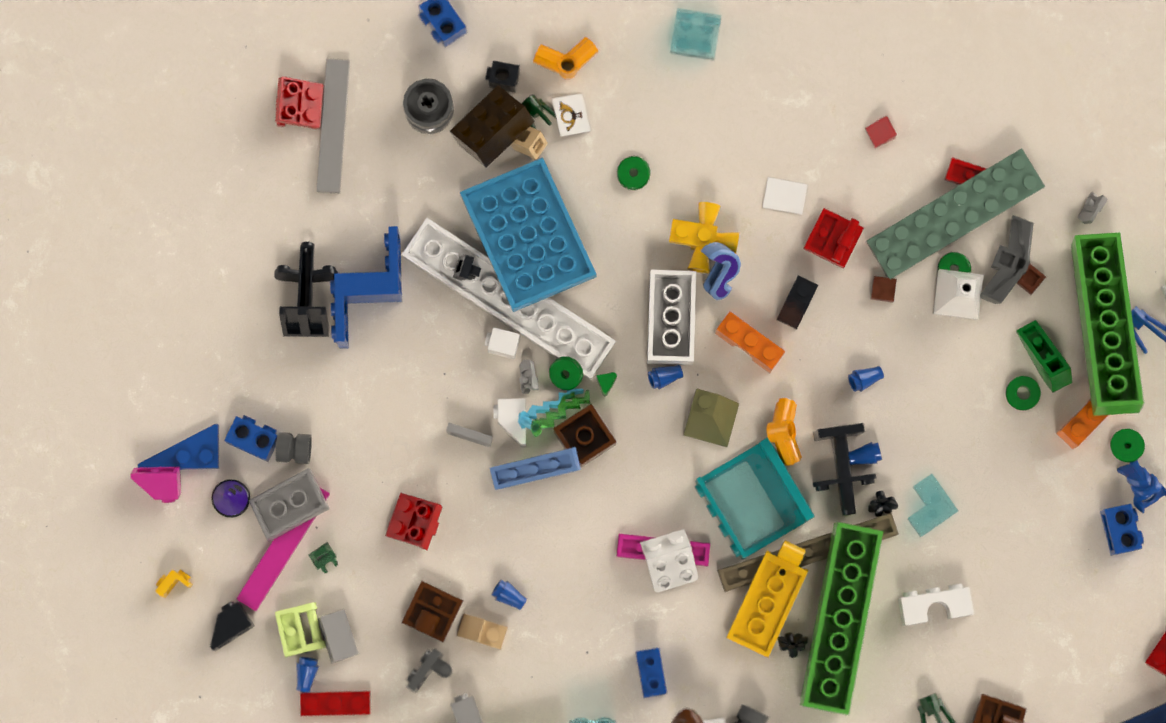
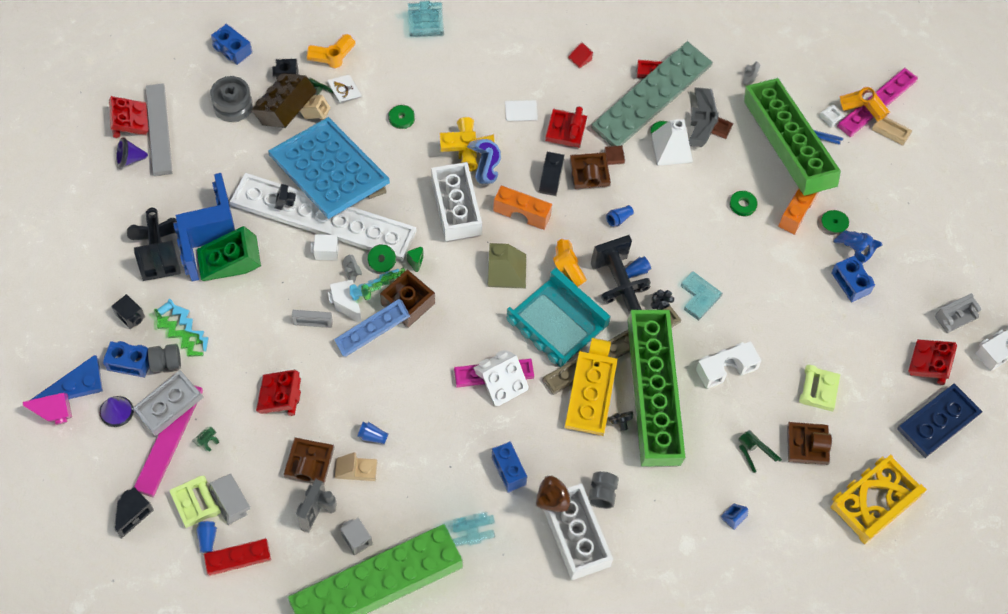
camera: 15 degrees left, 20 degrees down
(167, 583) = (71, 486): yellow bracket -> none
(261, 377) = (128, 311): none -> black brick
(291, 157) = (128, 153): none -> dark purple hat
(322, 419) = (162, 322): none -> piece
(388, 328) = (229, 255): none -> green slope
(663, 376) = (461, 245): blue cone -> none
(846, 306) = (590, 170): none -> reddish brown plate
(1040, 662) = (826, 388): none -> yellowish green plate
(1045, 356) = (754, 174): green slope -> none

